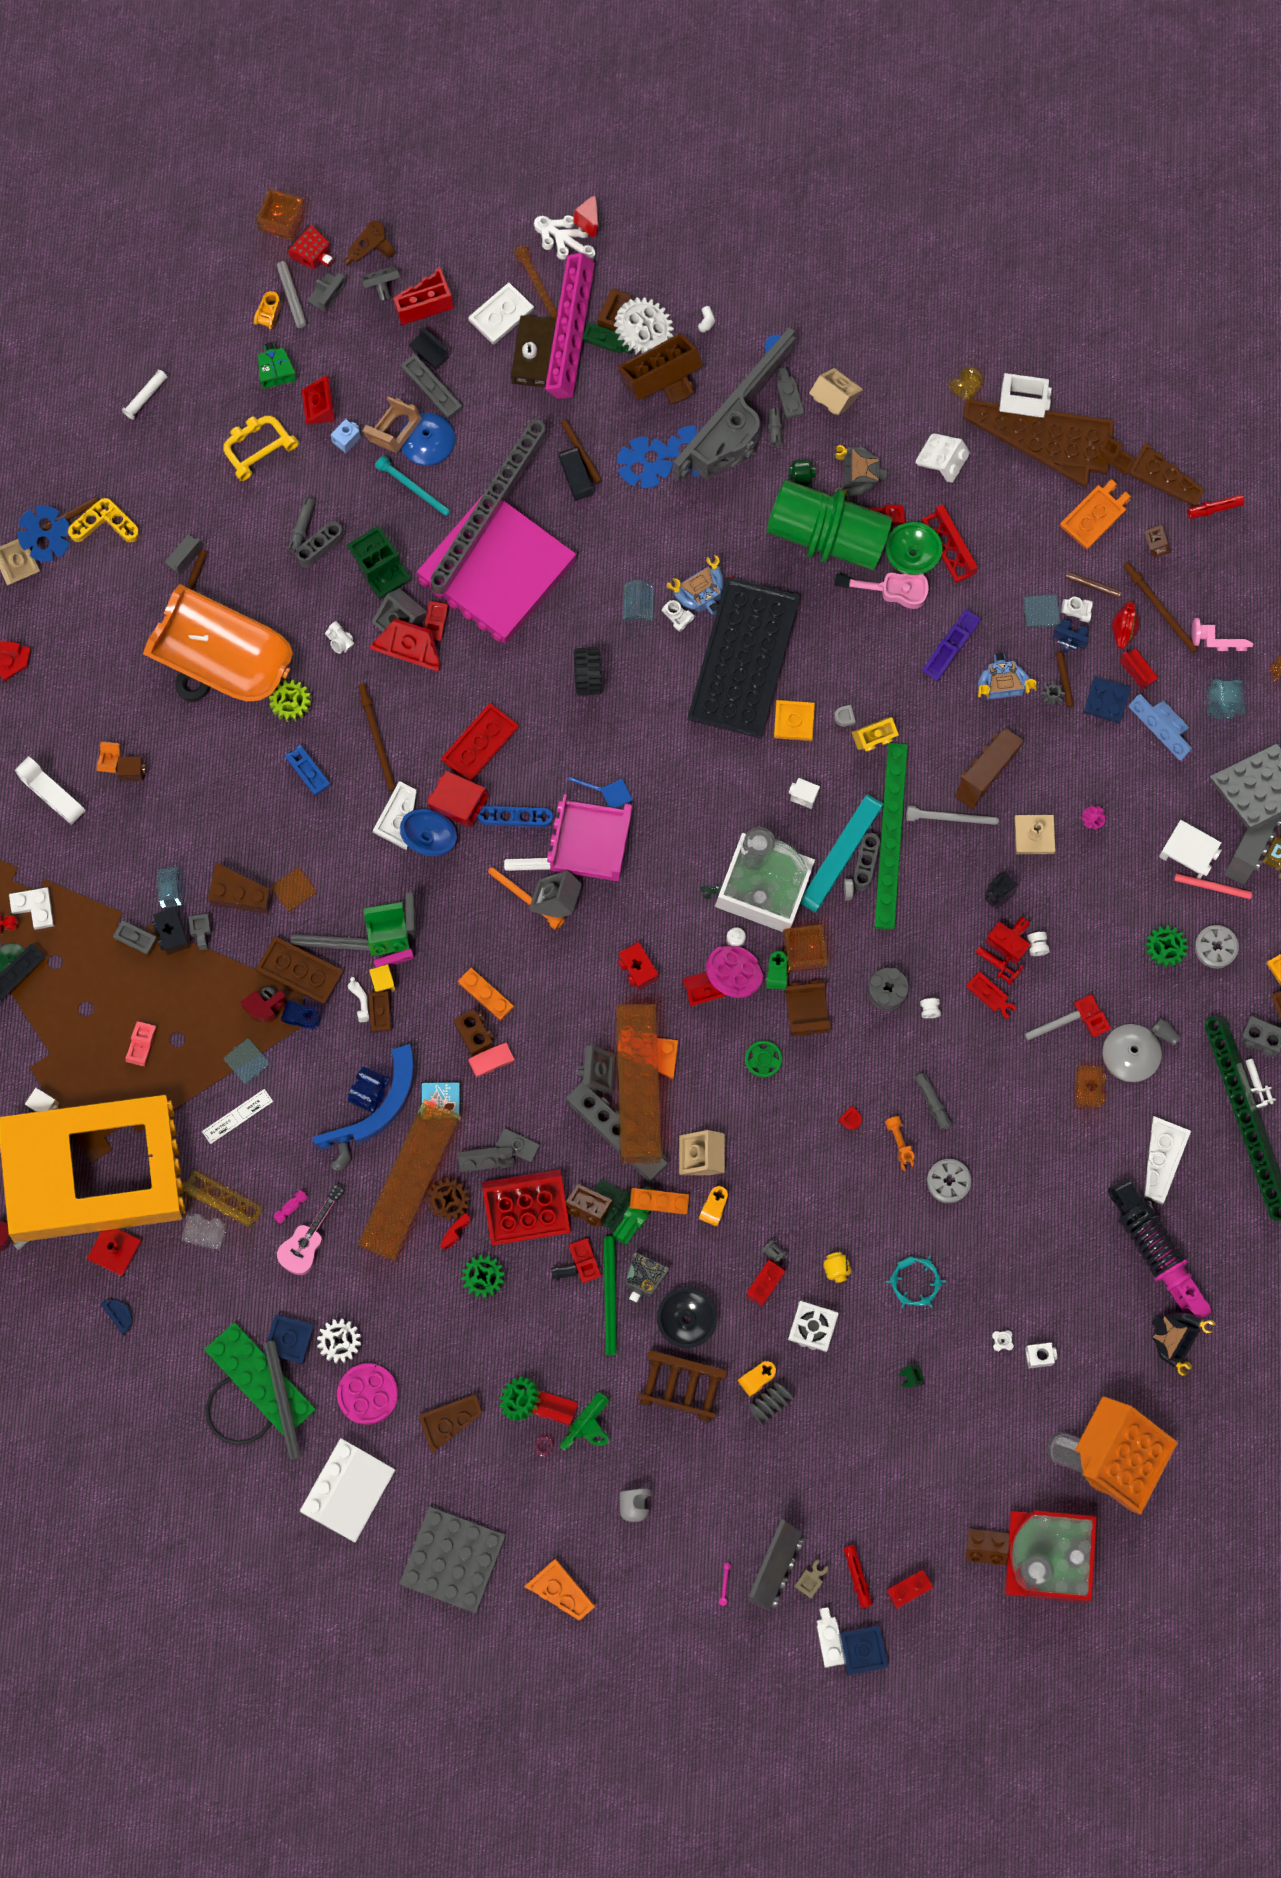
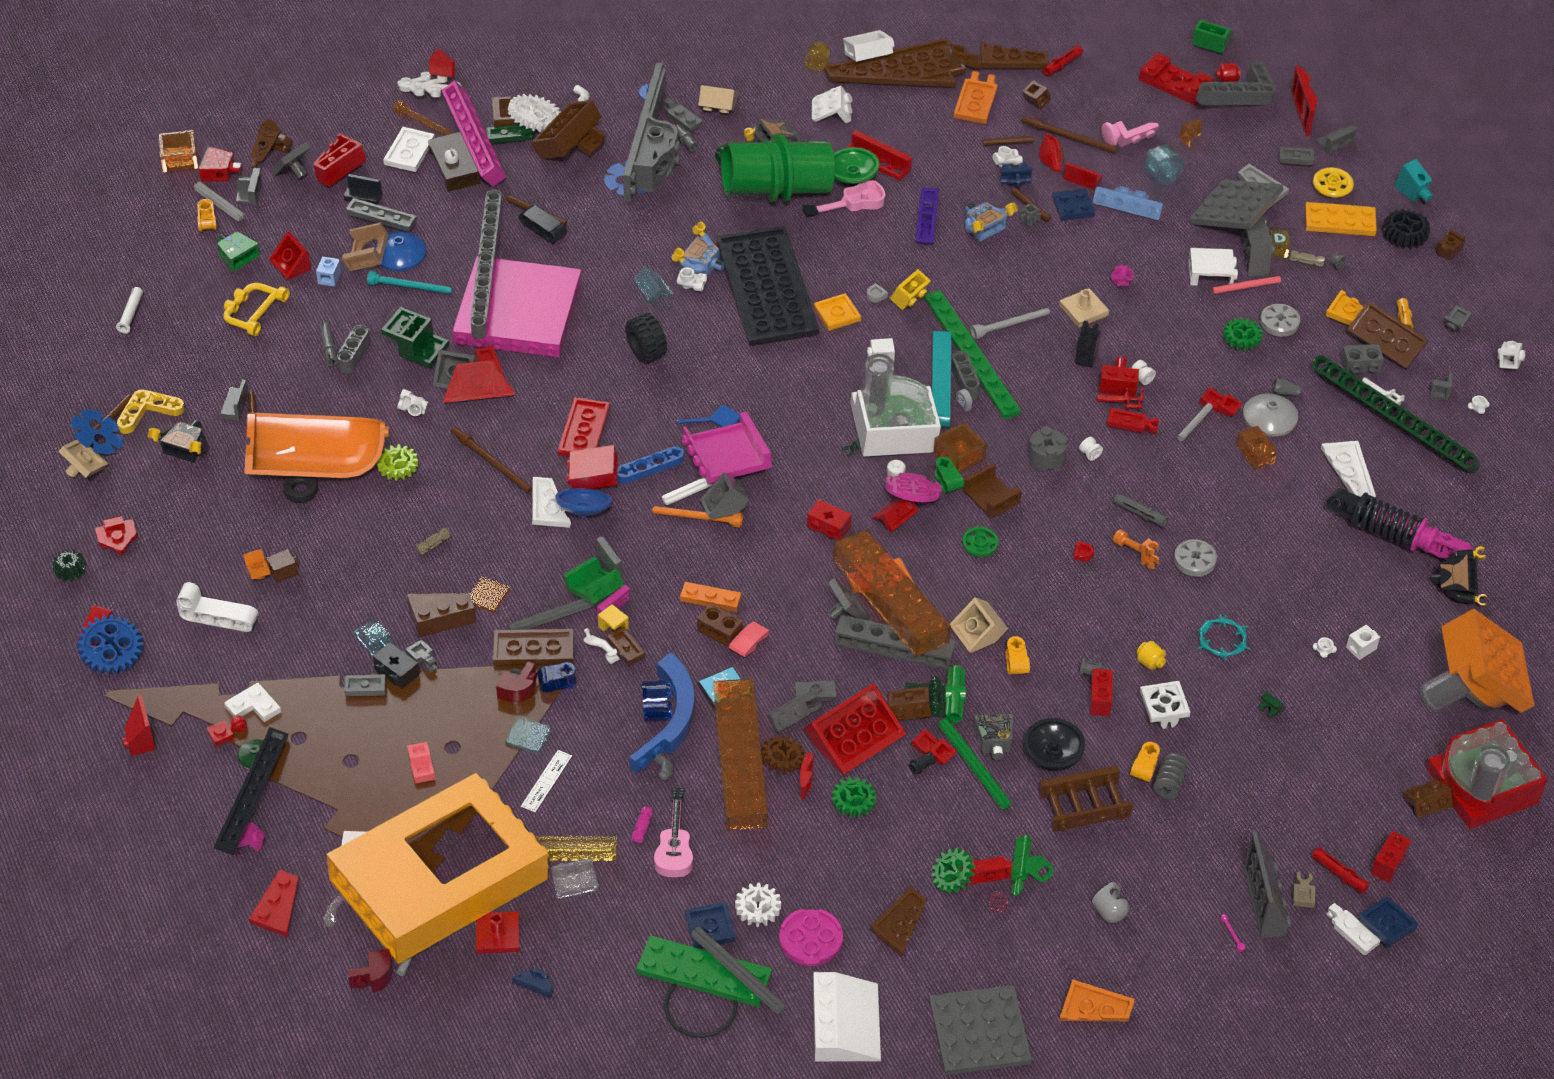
camera: 30 degrees left, 25 degrees down
(114, 579) = (182, 440): none -> torso
(277, 805) = (433, 541): none -> dark tan axle
(307, 770) = (445, 504): blue plate -> none
(640, 448) = (585, 196): blue piece -> none
(659, 1201) = (968, 671): orange plate -> none
(987, 767) = (1015, 278): reddish brown wedge -> none
(1041, 611) = (980, 171): clear light blue piece -> none

